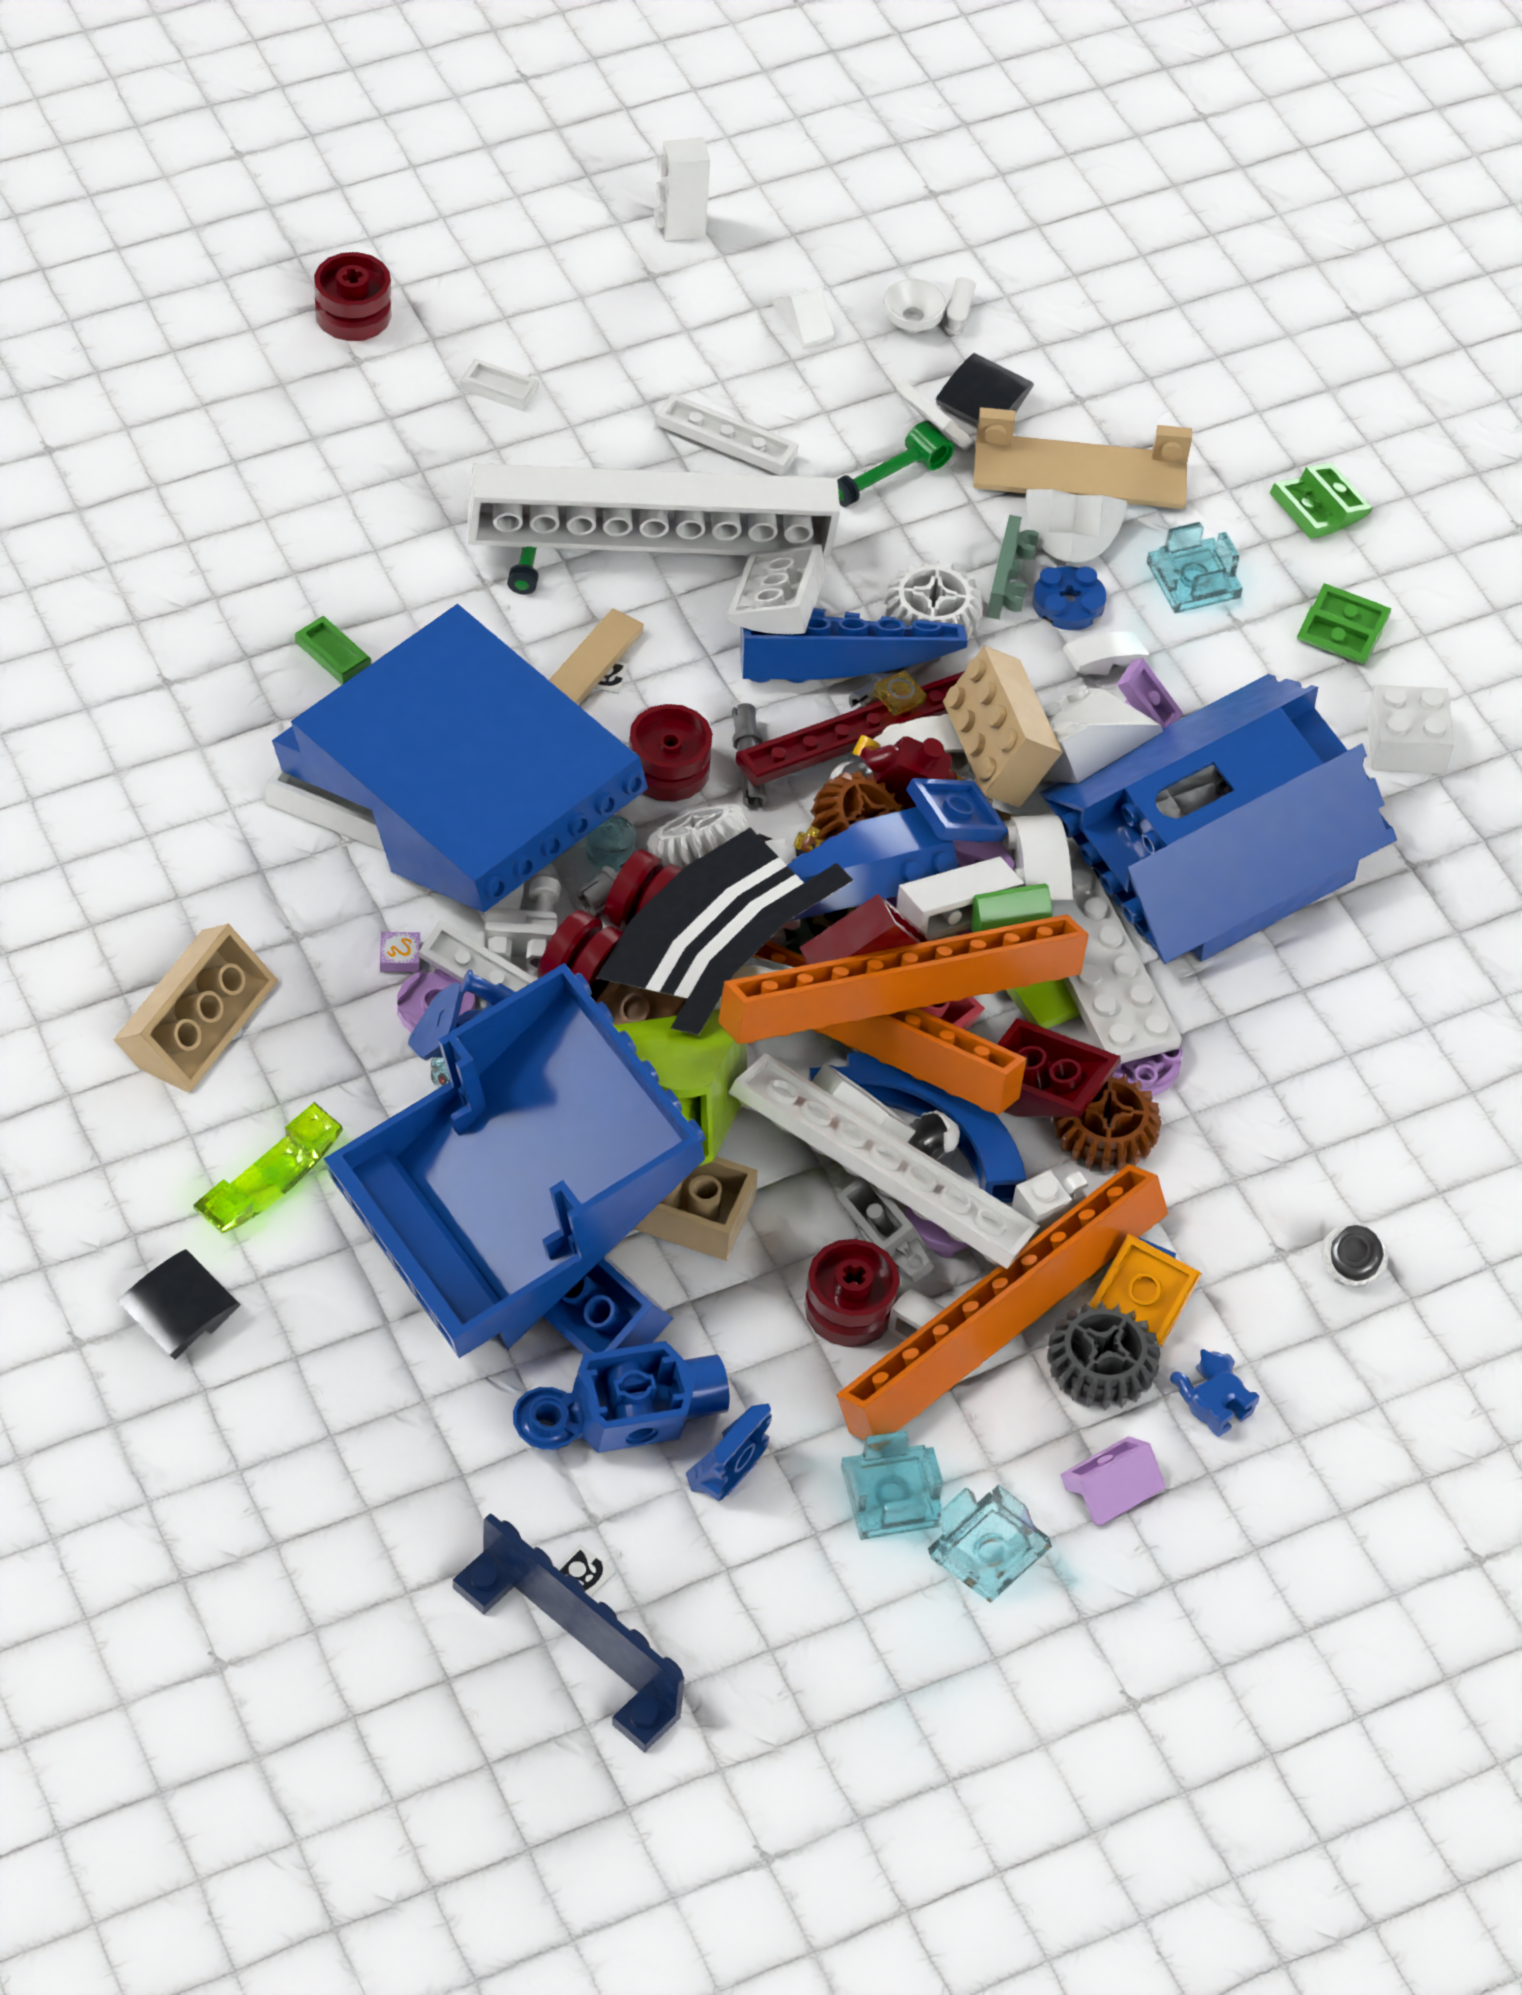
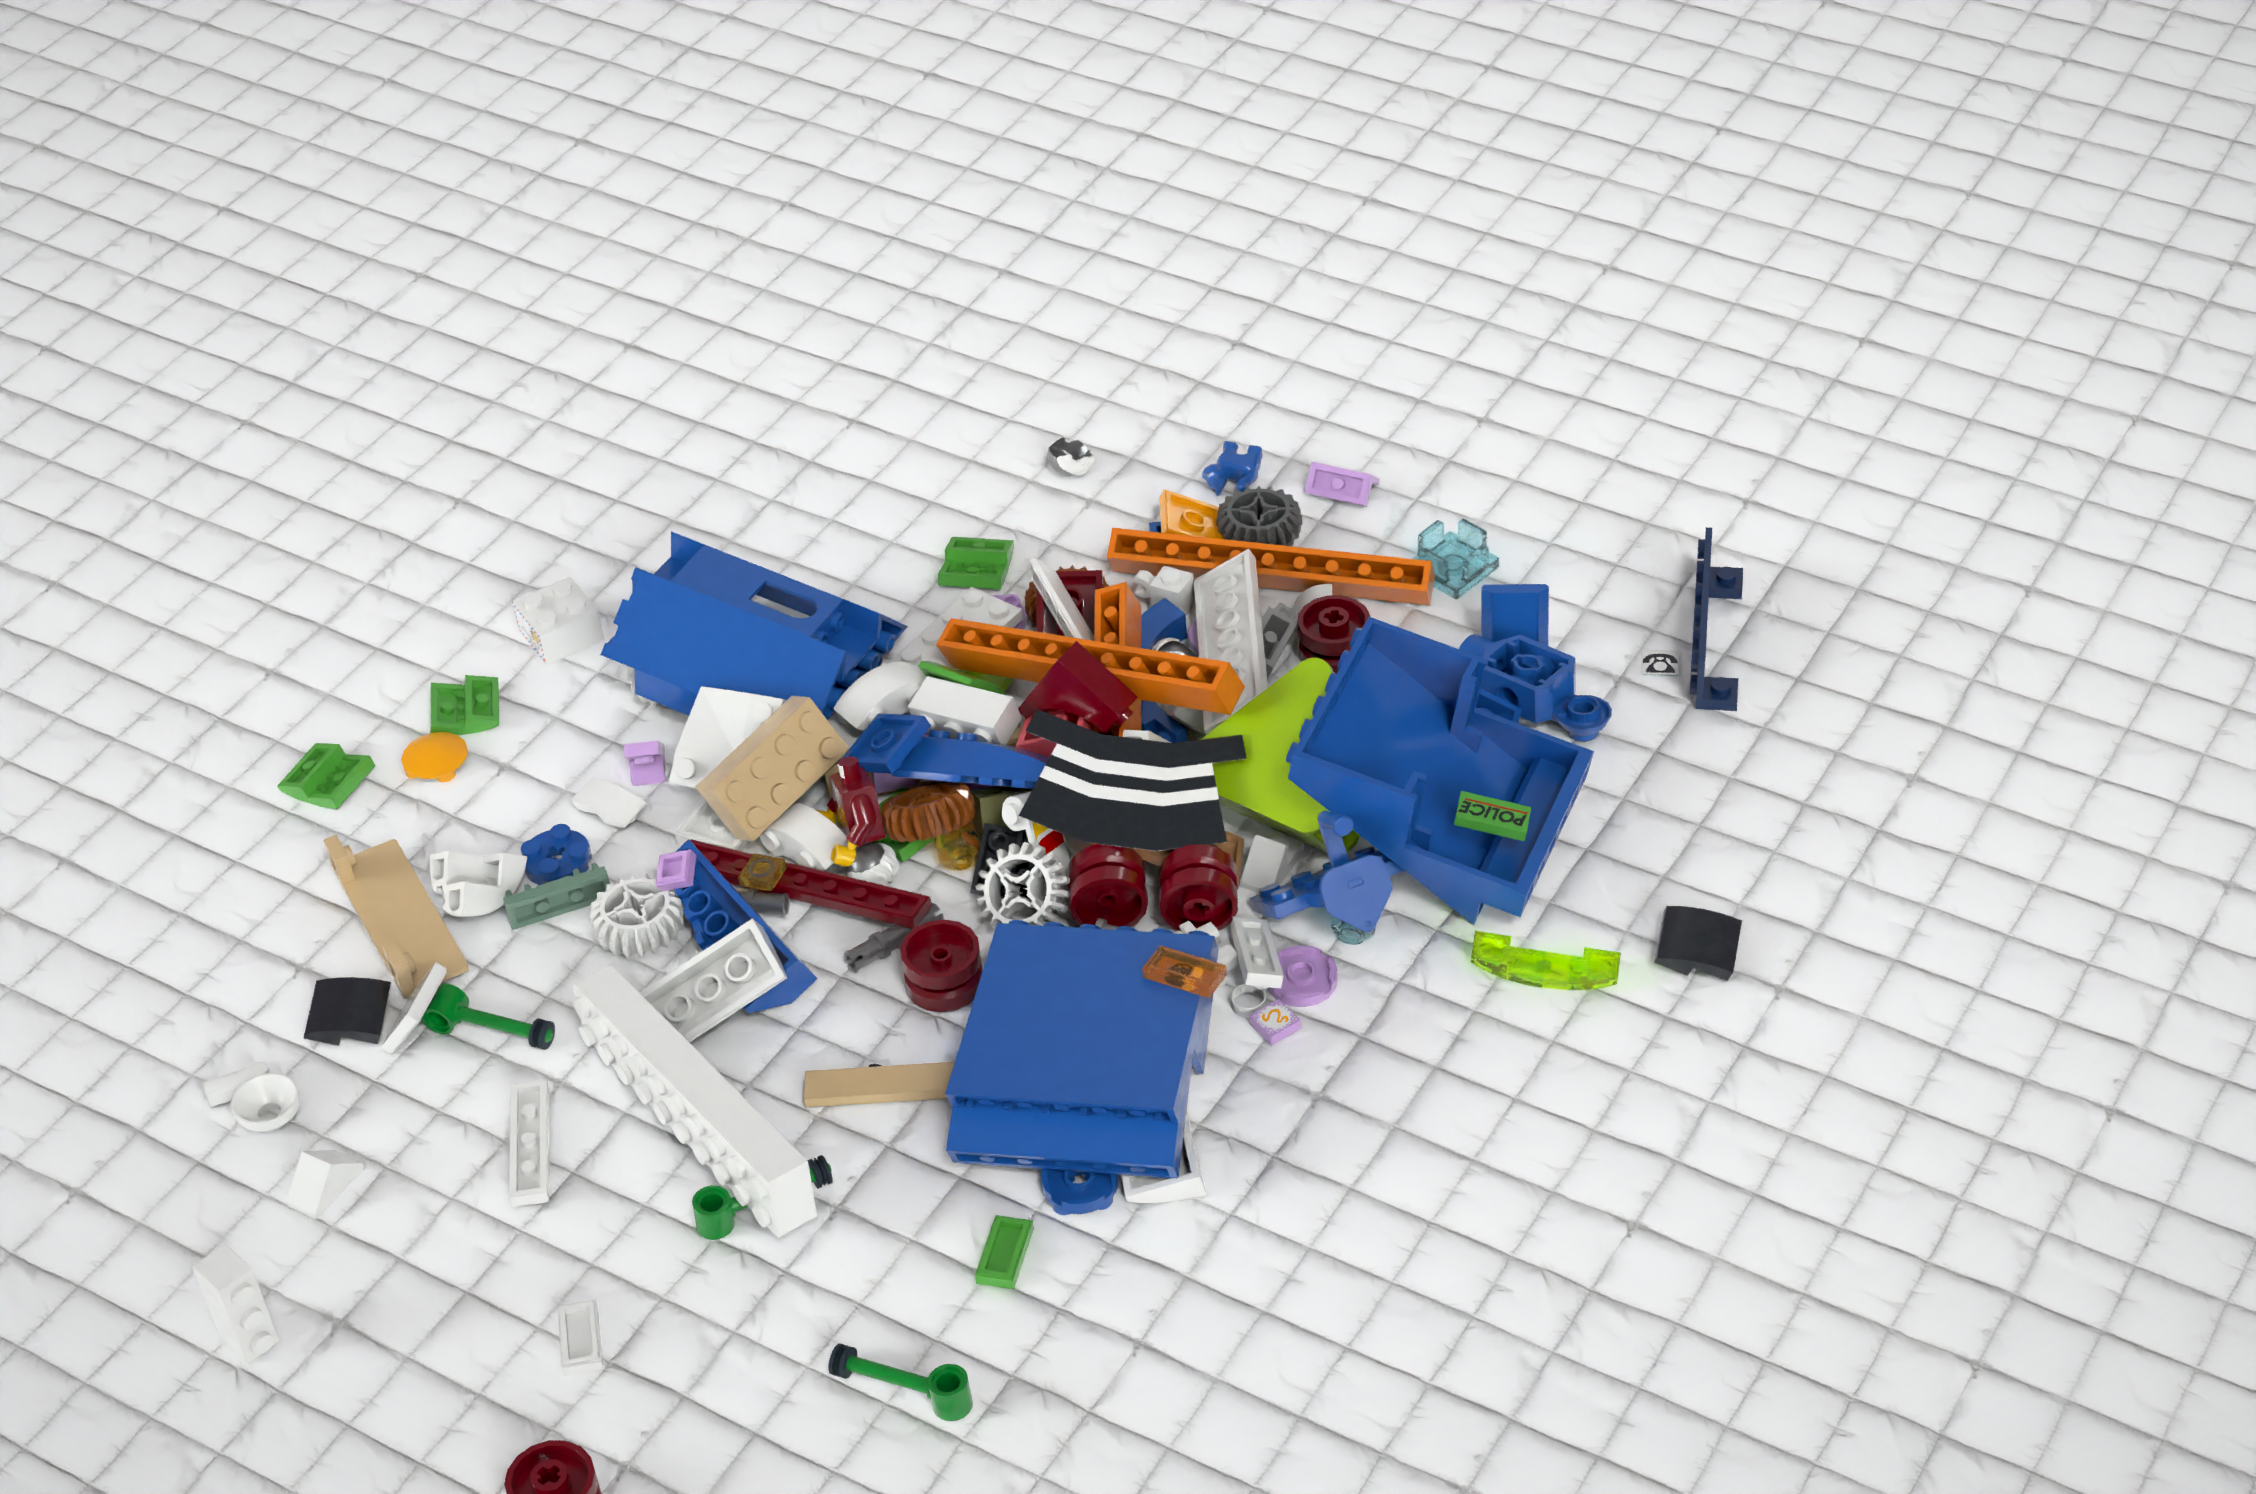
camera: 115 degrees left, 10 degrees down
(196, 1008) = (1451, 1093): tan slope -> none
(226, 534) = (945, 1386): none -> green piece
(426, 1174) = (1492, 816): none -> bright green tile
(442, 825) = (1184, 971): none -> clear orange tile
(938, 620) = (676, 870): none -> lavender tile
(987, 1541) = (1458, 483): clear light blue panel -> none
(1052, 1044) = (1059, 601): none -> white slope
(1195, 570) = (471, 800): clear light blue panel -> none
(1245, 1094) = (976, 563): none -> bright green slope
(1285, 578) = (434, 756): none -> light orange dish

